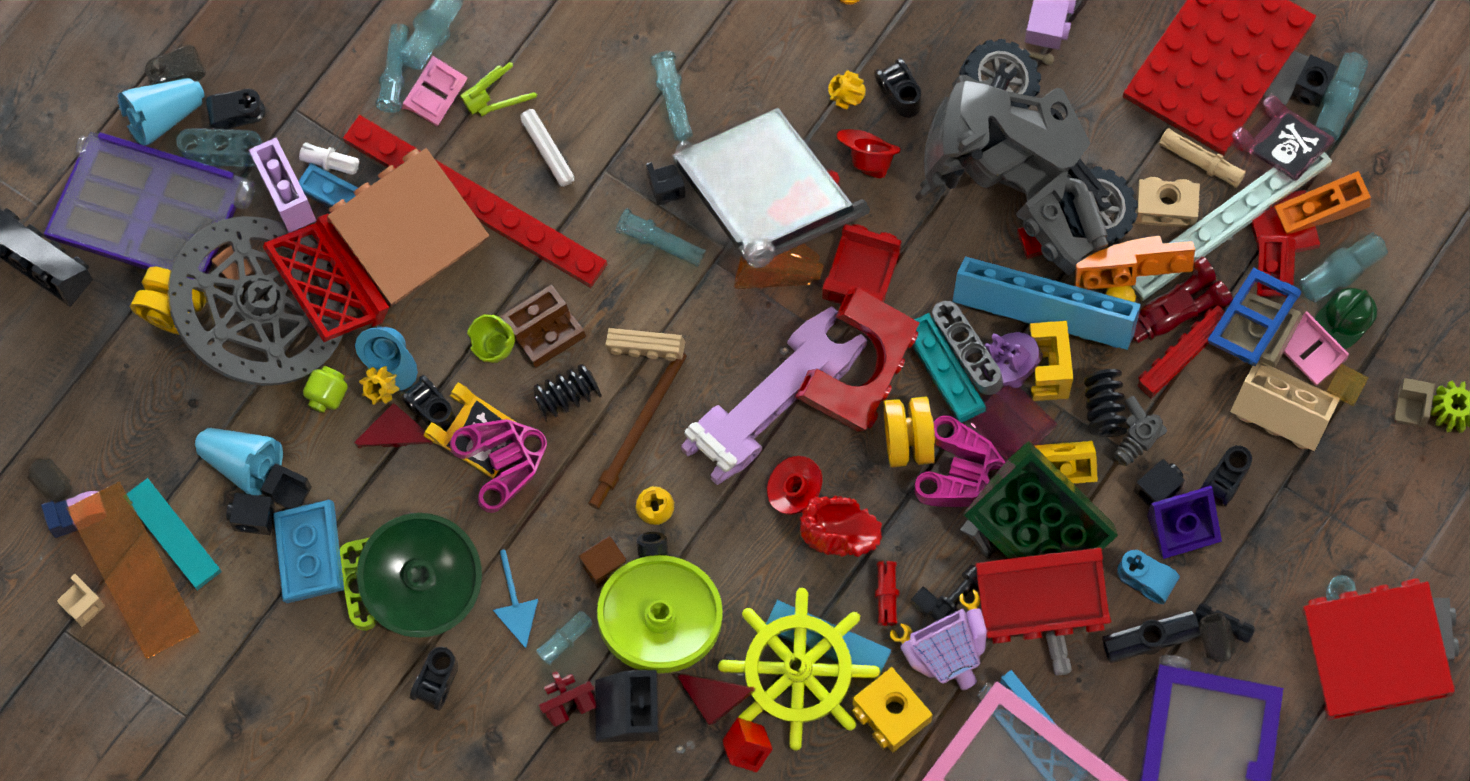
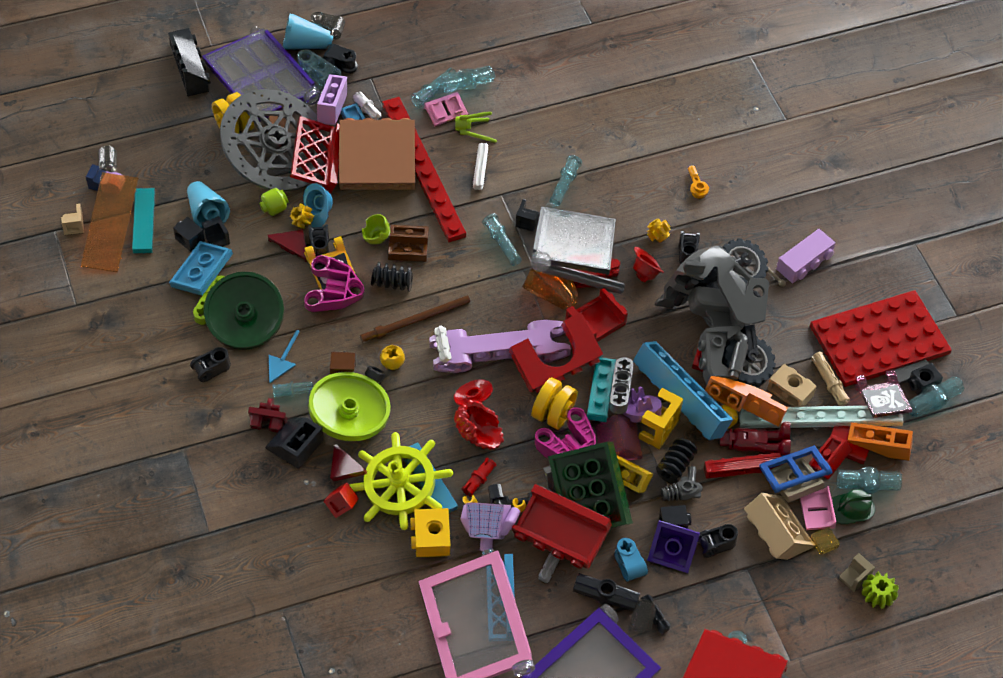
camera: 30 degrees right, 15 degrees down
(645, 344) = (452, 281): tan piece -> none

